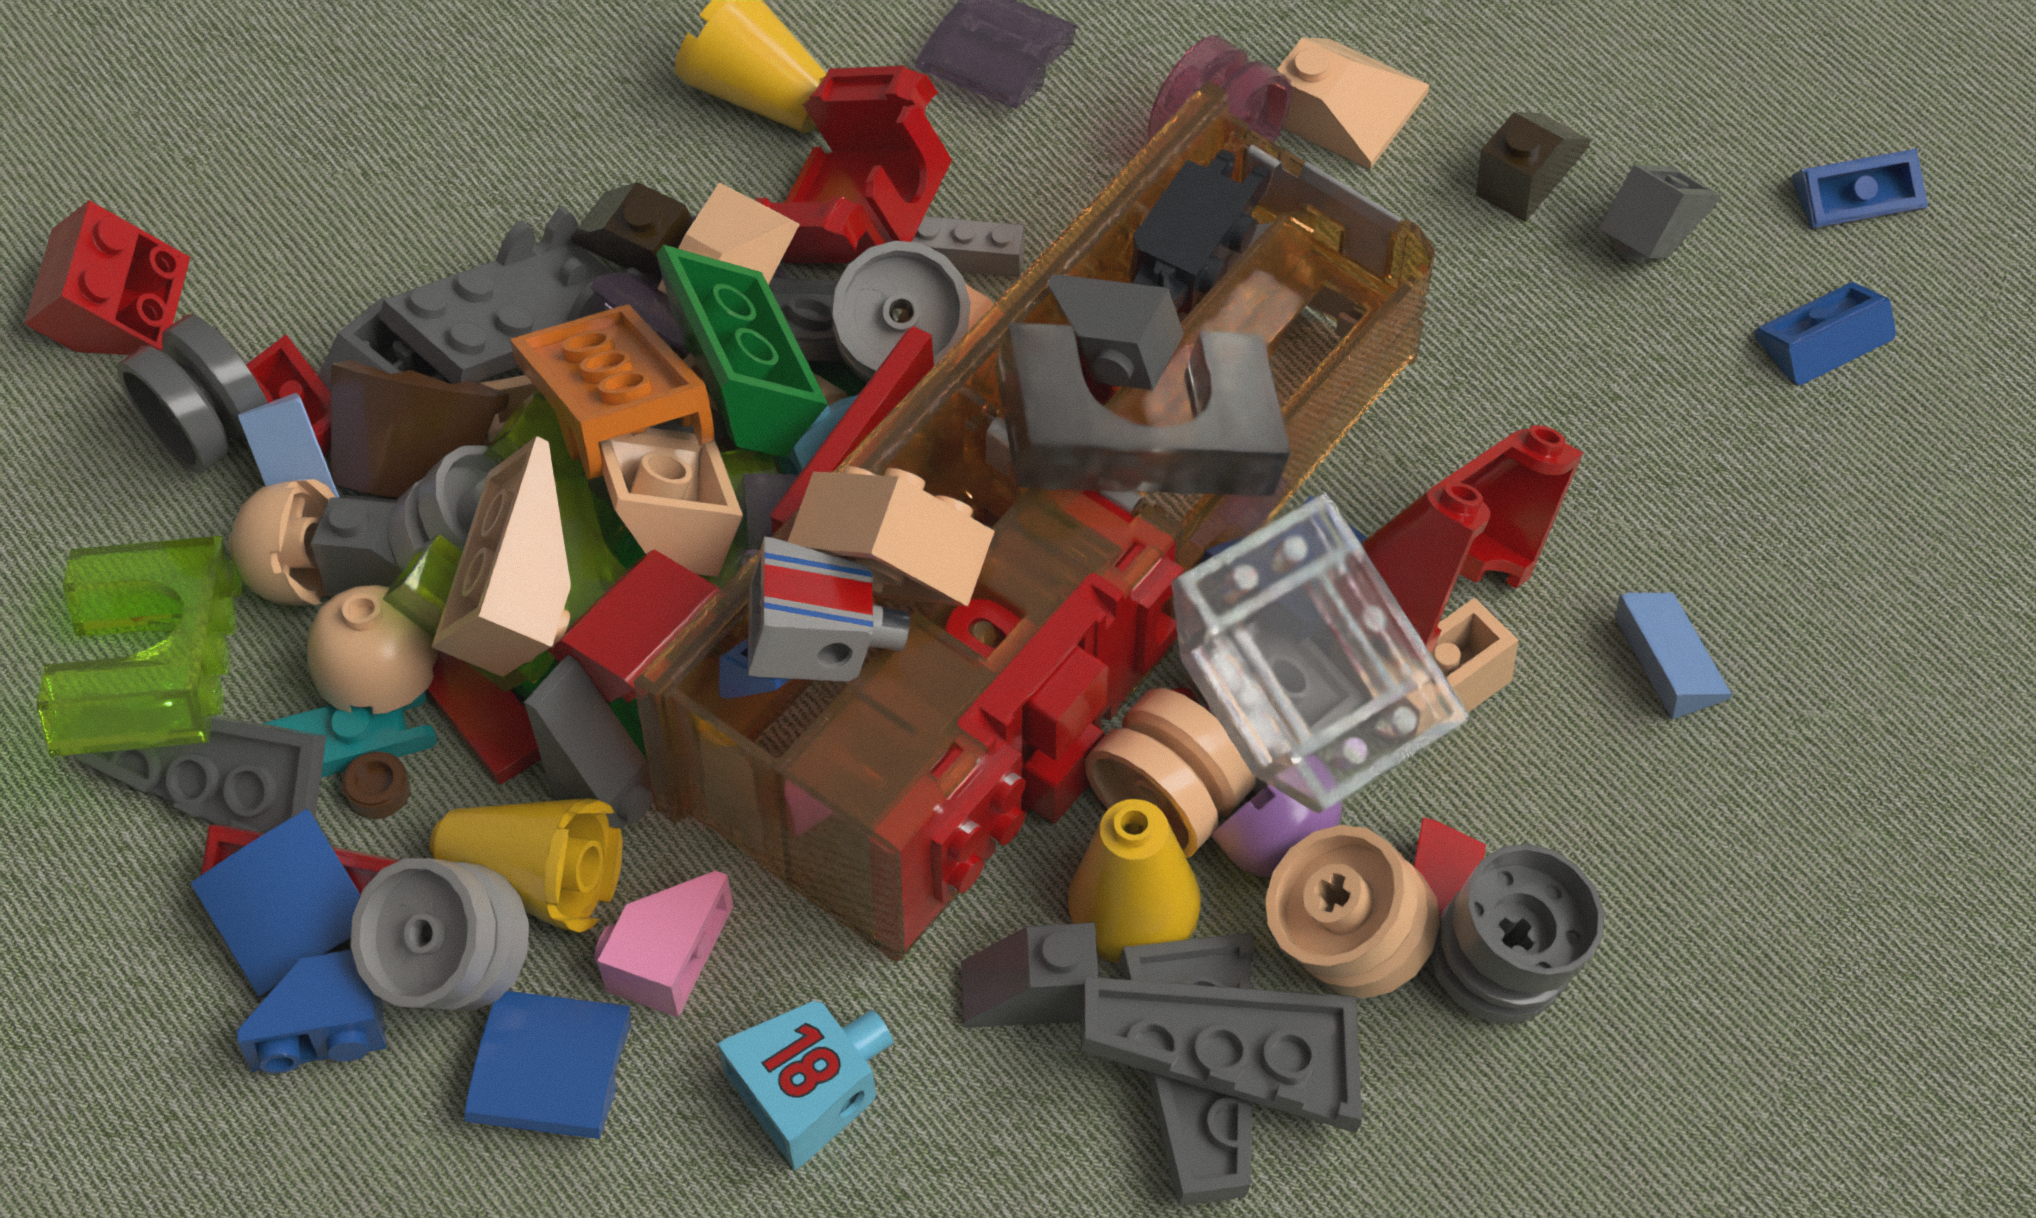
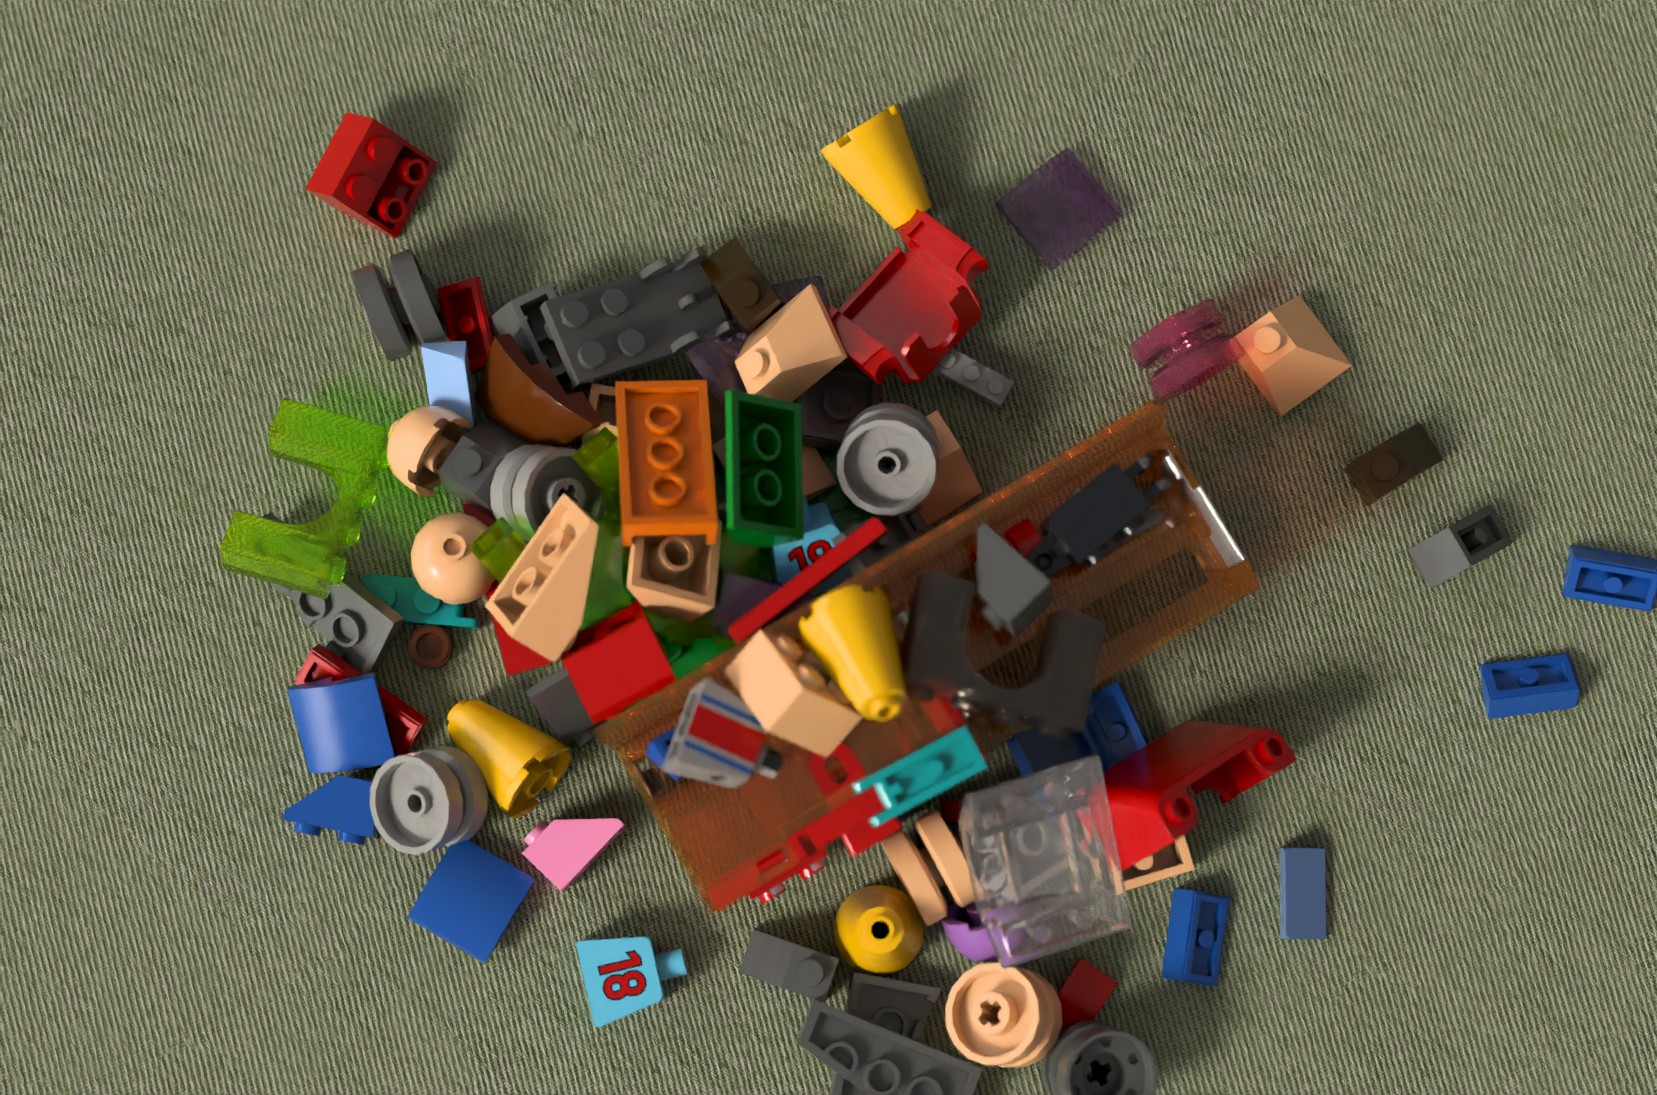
camera: 20 degrees right, 25 degrees up
(951, 441) = (858, 648): none -> yellow cone
(1105, 573) = (923, 774): none -> teal hinge
(1560, 754) = (1195, 937): none -> blue slope

